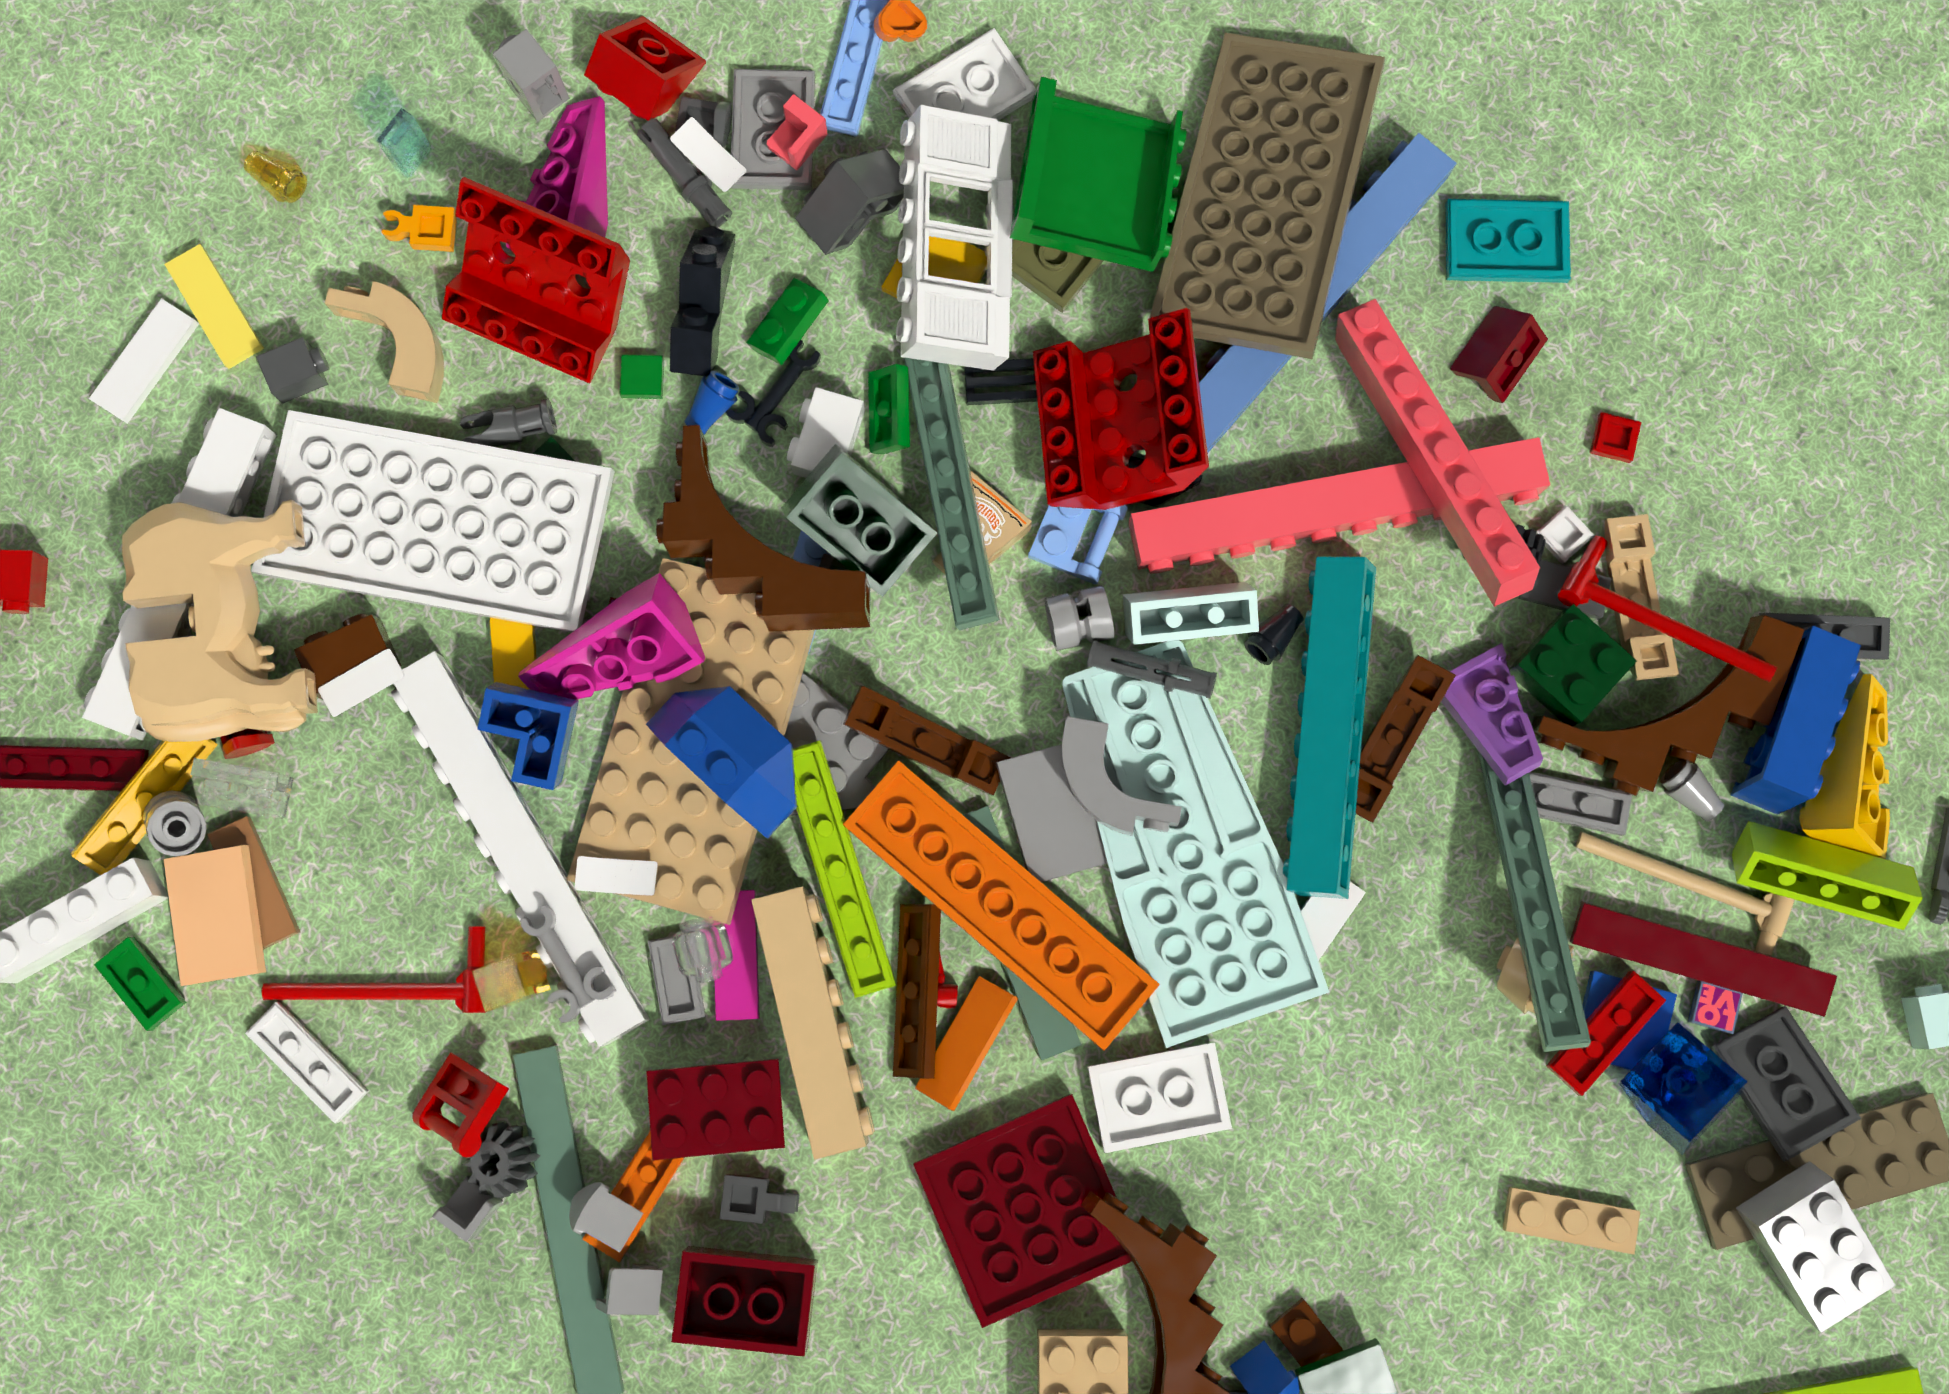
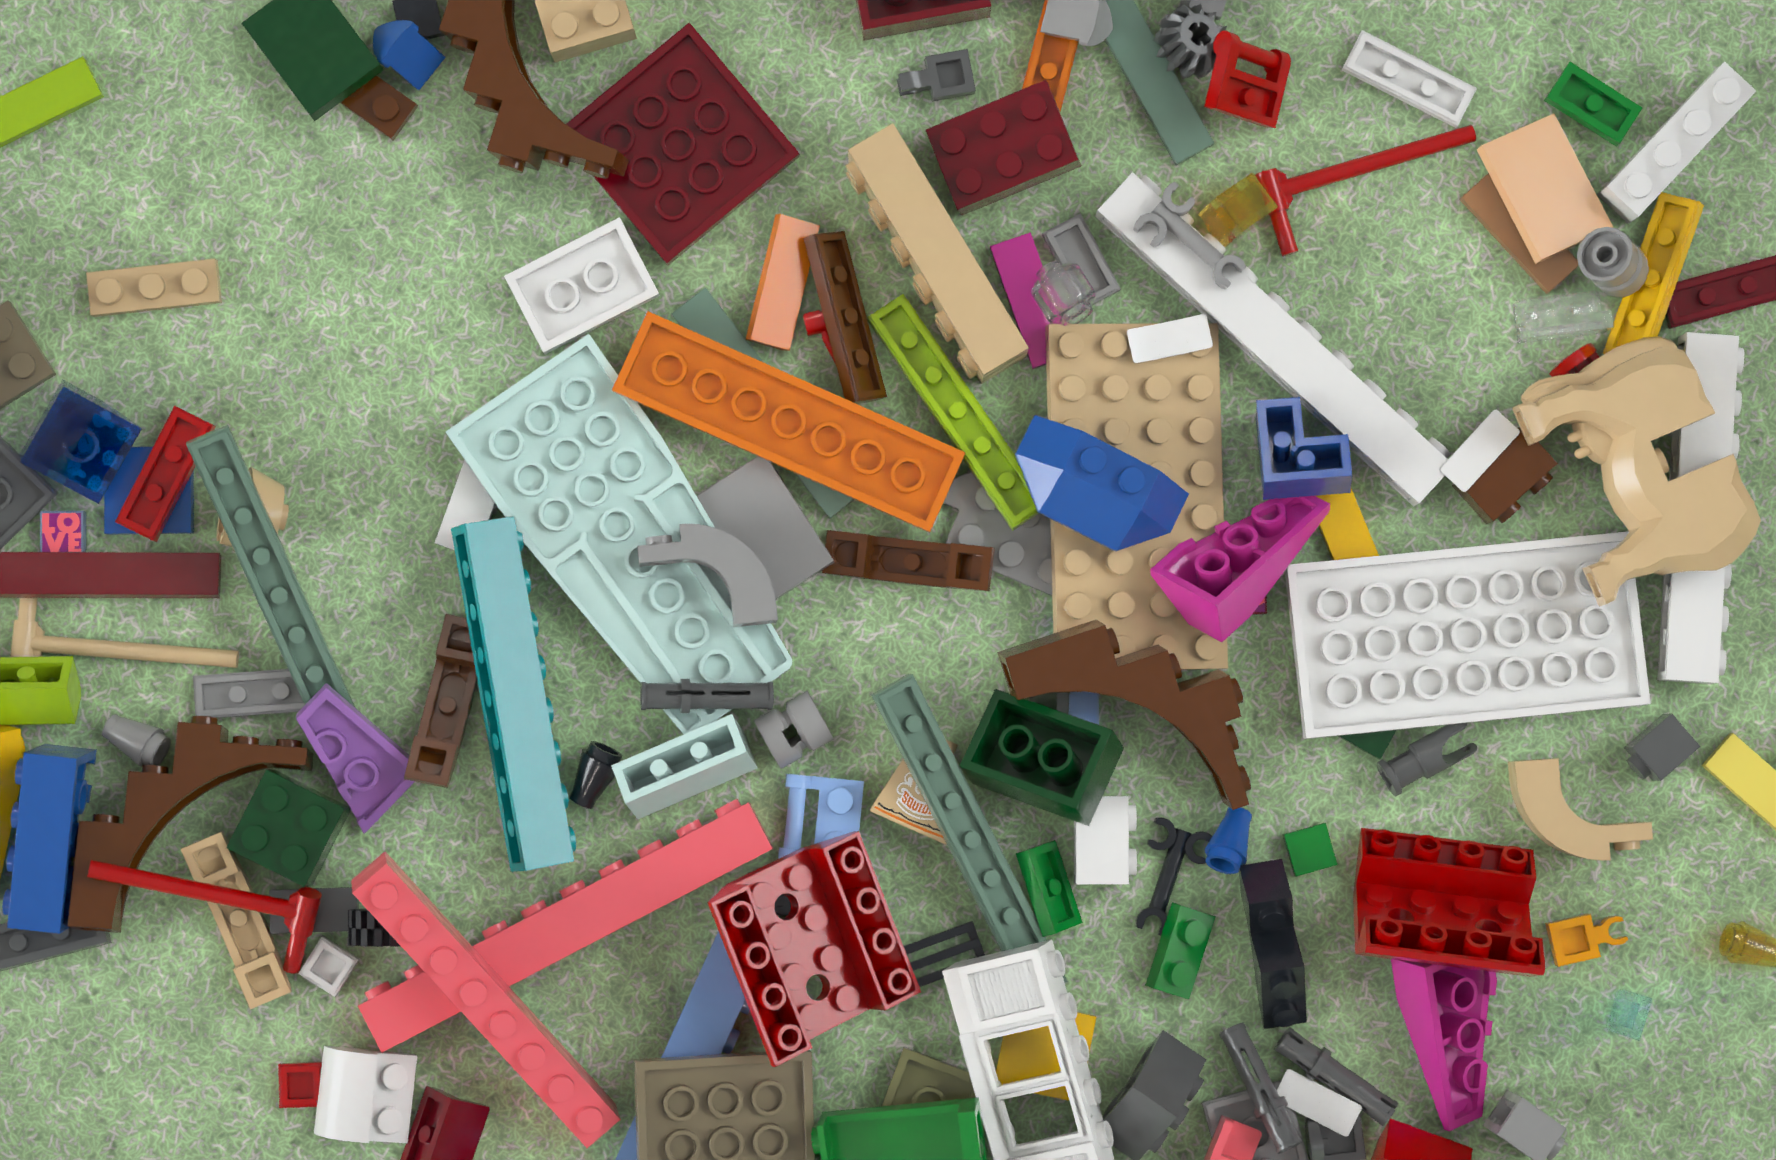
camera: 165 degrees right, 5 degrees up
(748, 131) = (1283, 1135): none -> dark grey pin
(1562, 408) = (365, 1095): none -> white brick

